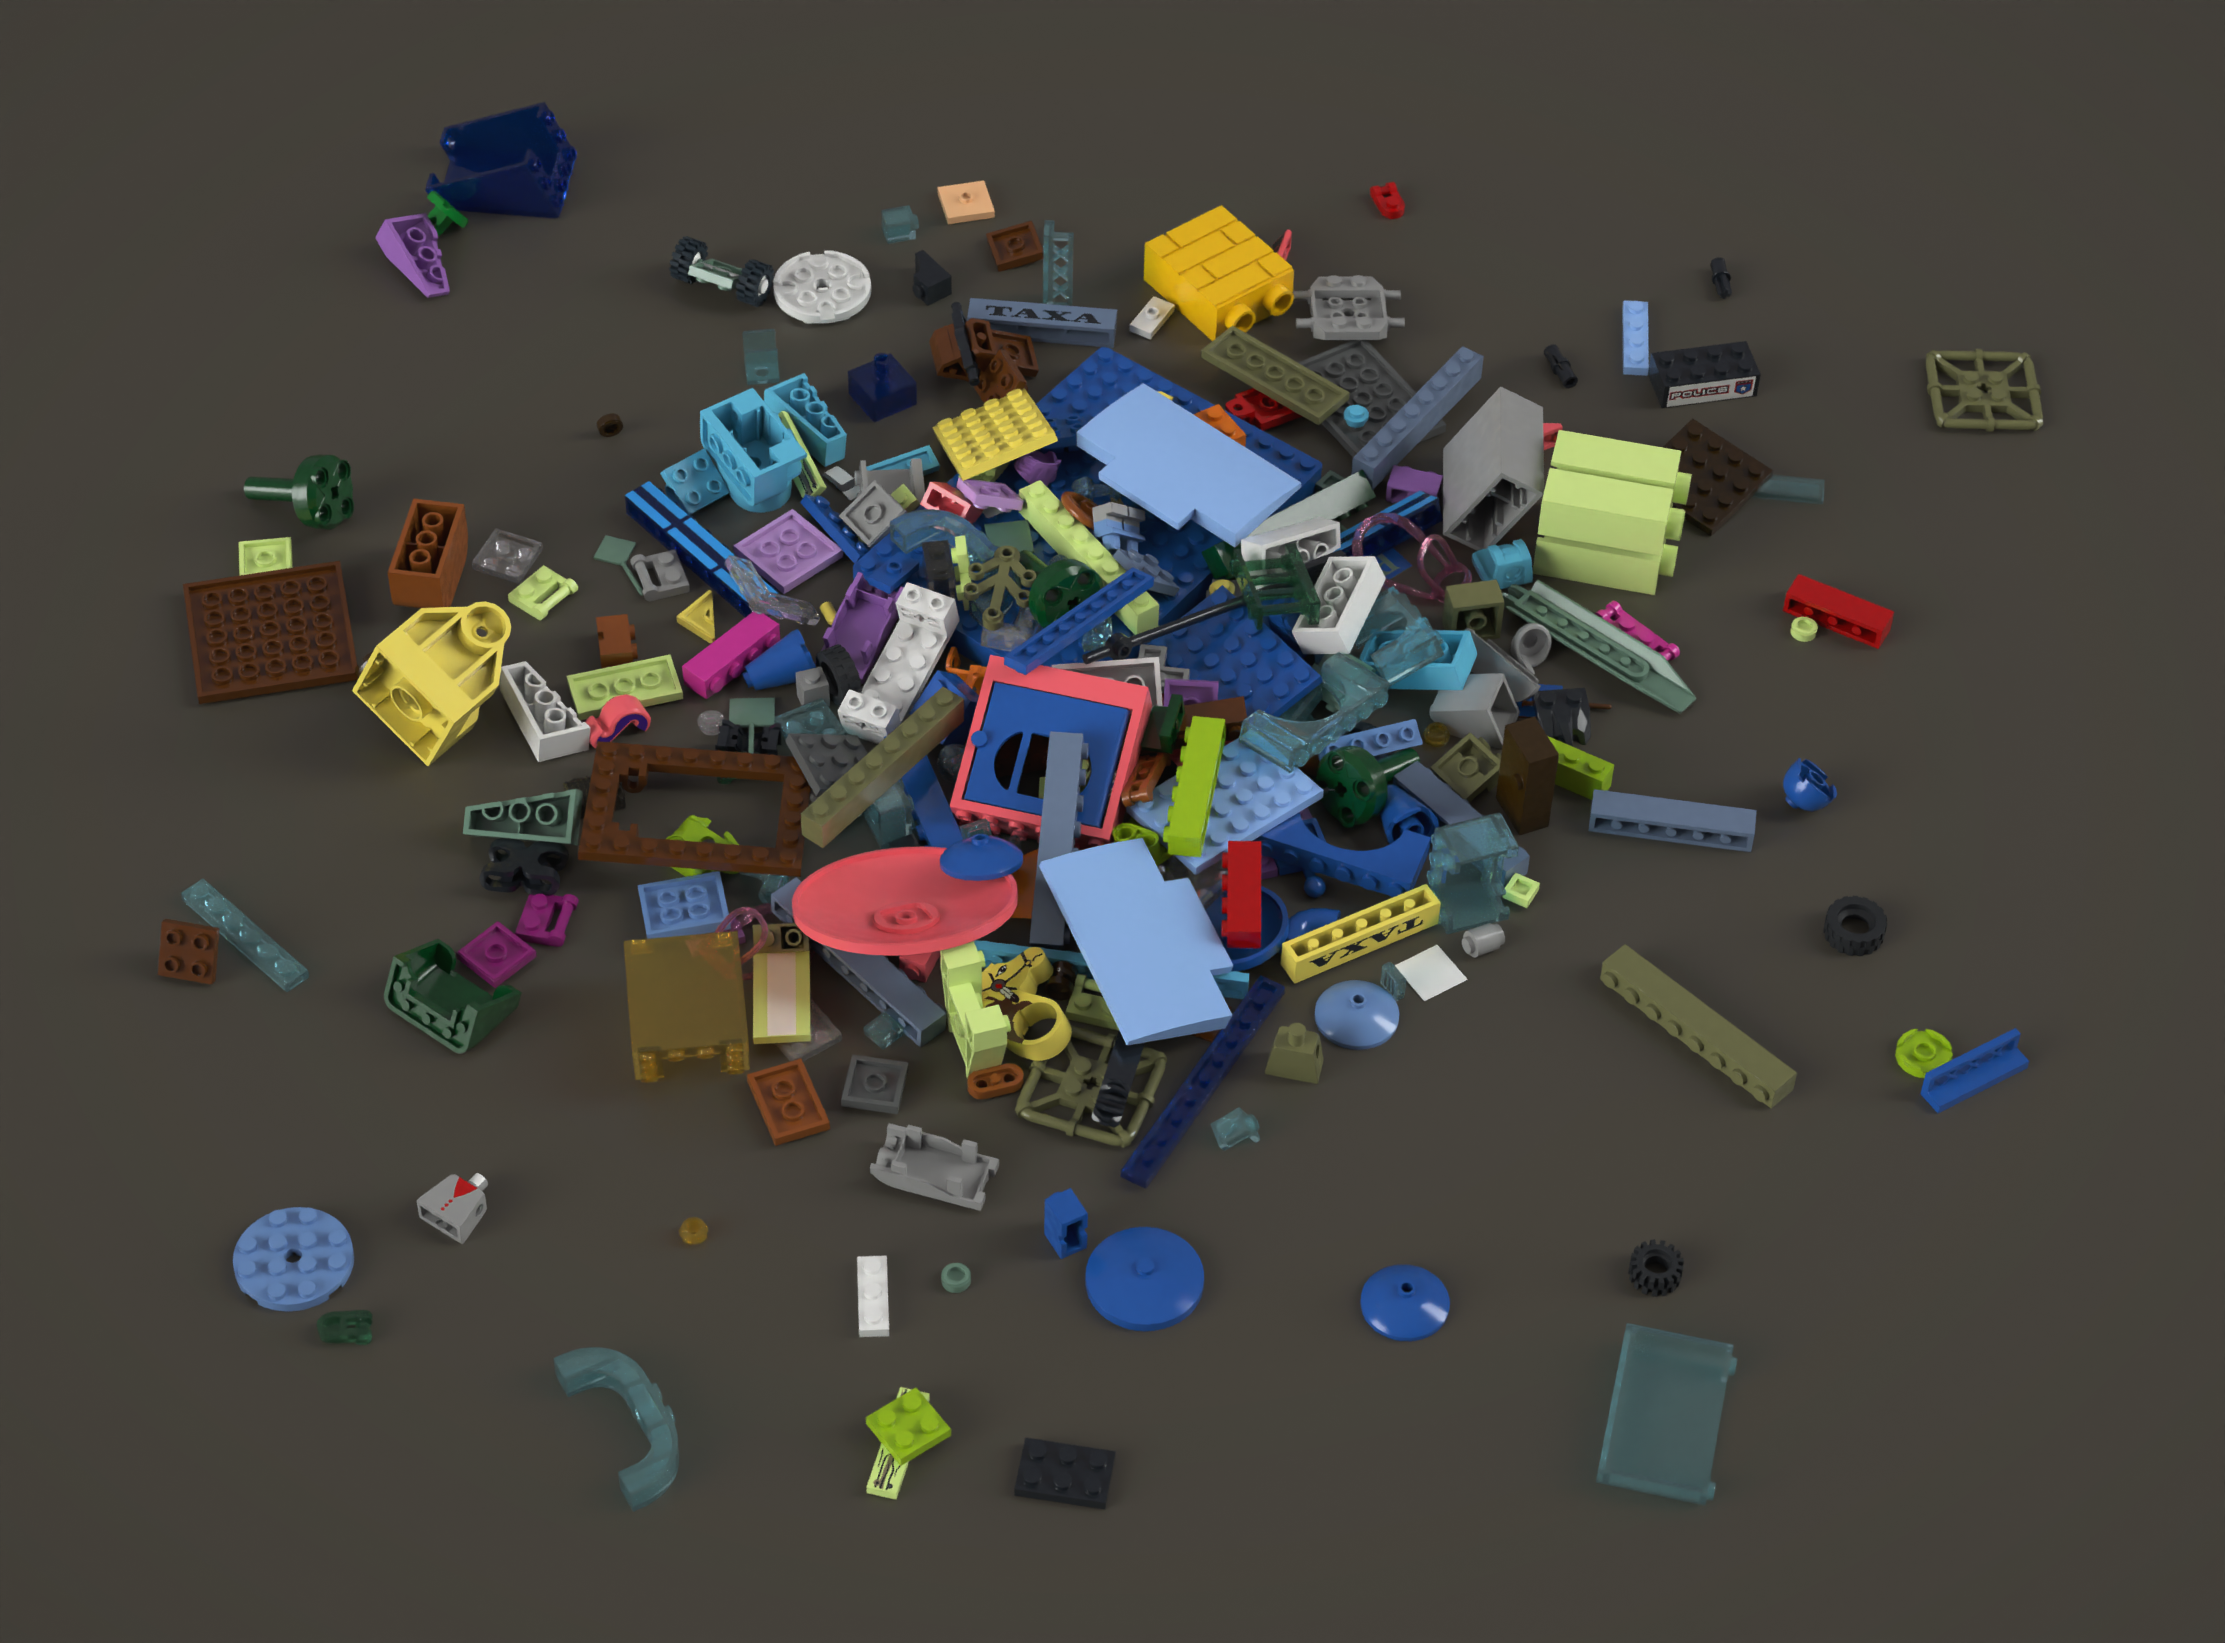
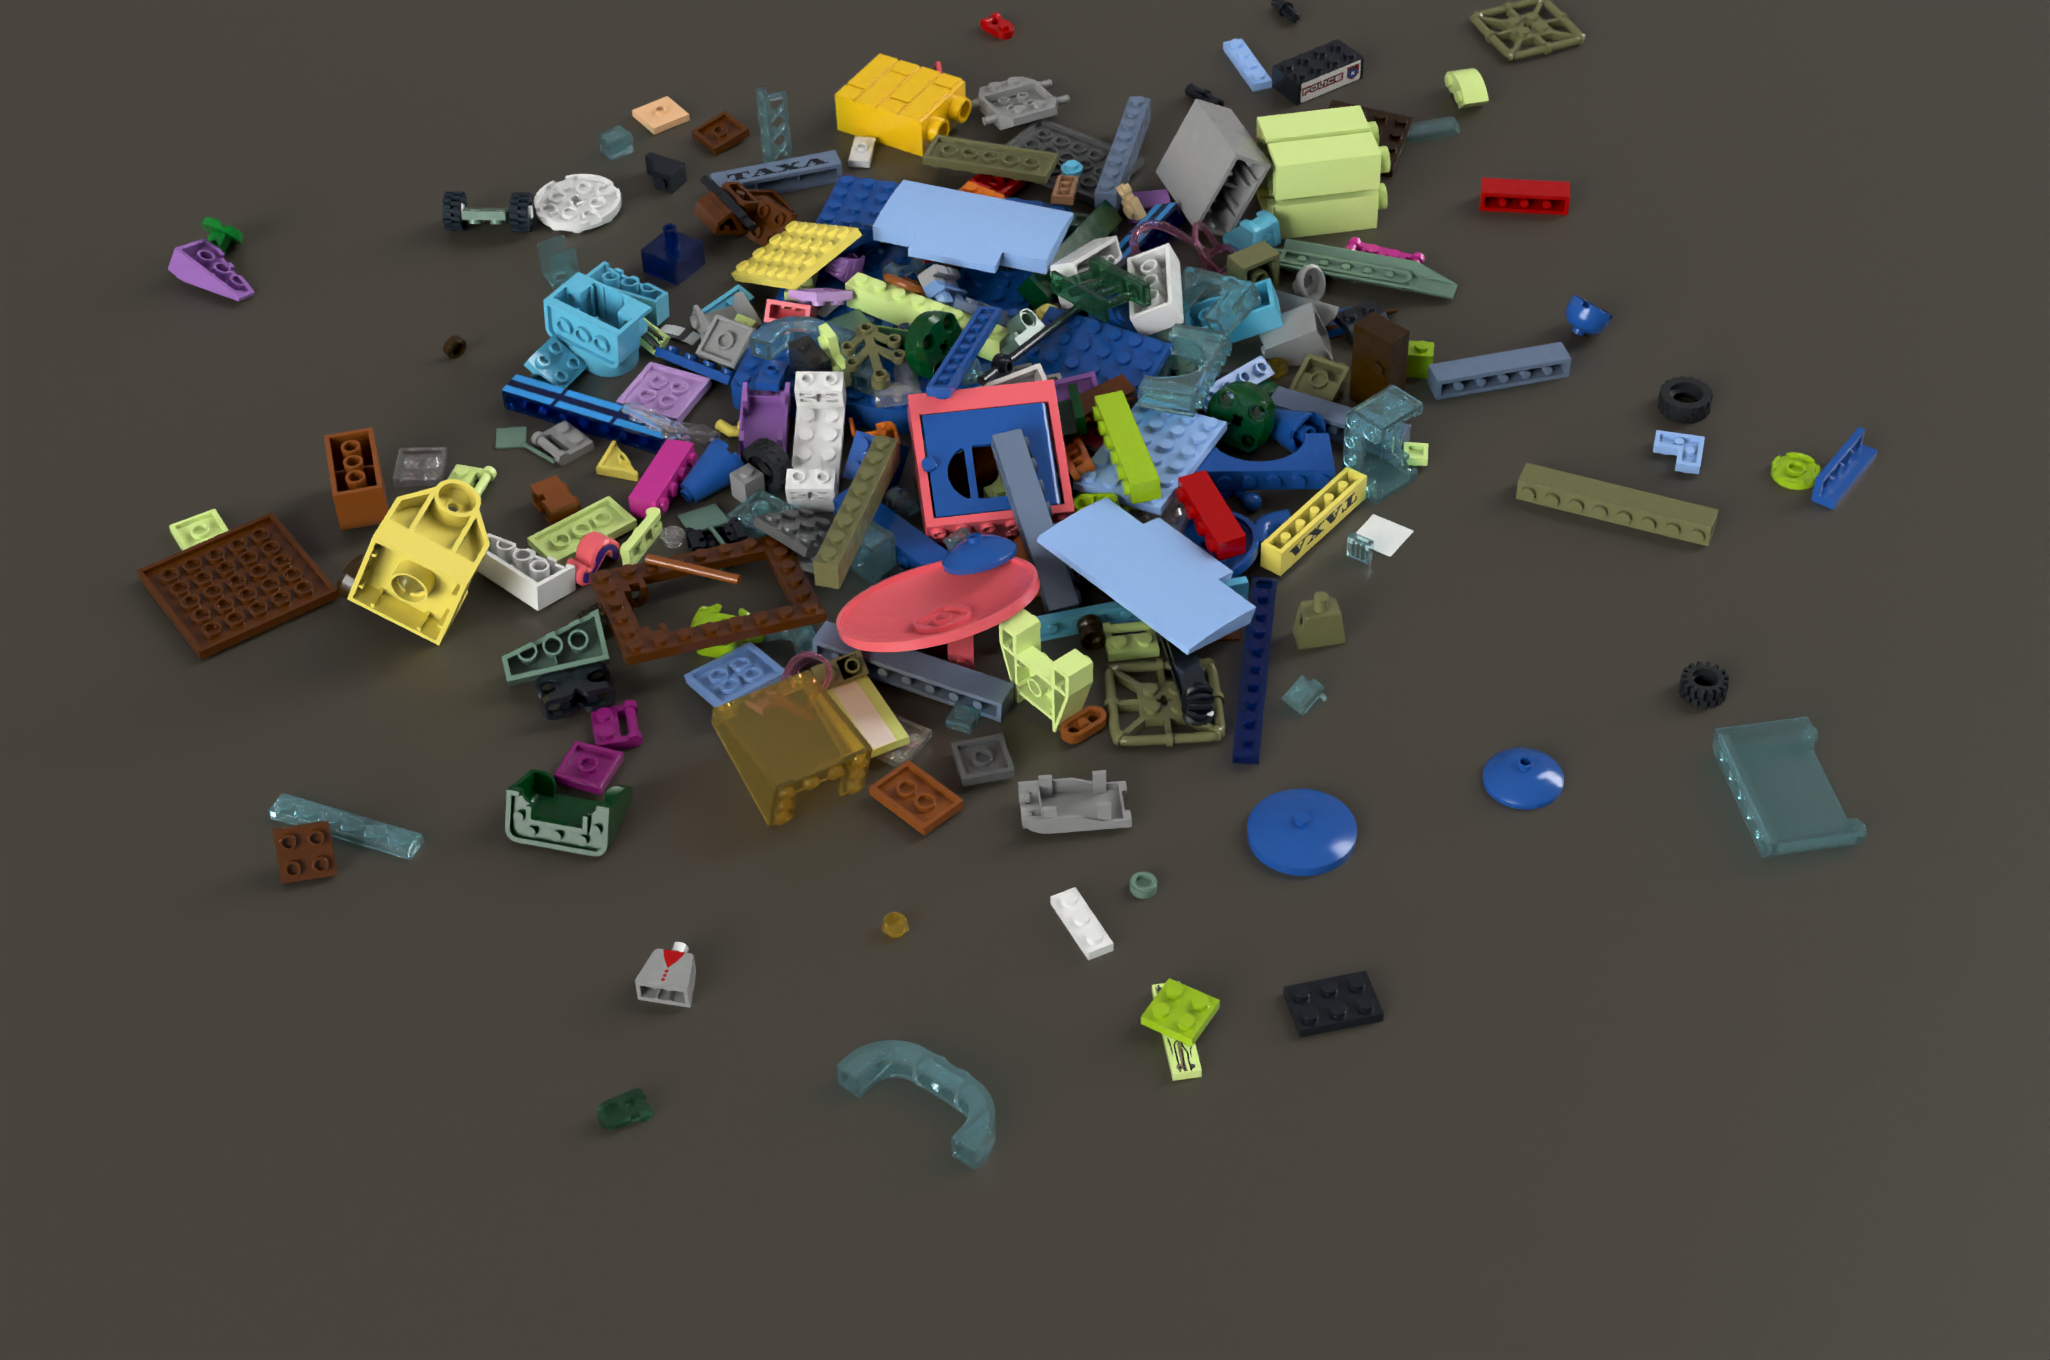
camera: 20 degrees left, 5 degrees down
(296, 1286) = (519, 1091): medium blue plate -> none
(318, 492) = (227, 460): dark green piece -> none
(507, 164) = (256, 184): clear blue windscreen -> none
(678, 714) = (642, 537): none -> yellowish green plate
(697, 773) = (693, 569): none -> dark orange bar
(1014, 989) = (1060, 638): light yellow animal -> none
(1065, 1223) = (1214, 807): blue brick -> none
(1163, 612) = (1021, 328): none -> sand green plate
(1329, 441) = (1065, 190): none -> medium nougat tile
(1356, 1014) = (1346, 579): medium blue dish -> none
(1388, 487) = (1131, 205): none -> tan plate
(1483, 939) = (1410, 497): light grey brick -> none
(1804, 629) = (1505, 217): yellowish green tile -> none
(1817, 984) = (1684, 446): none -> light blue plate
(1859, 448) = (1467, 87): none -> yellowish green brick

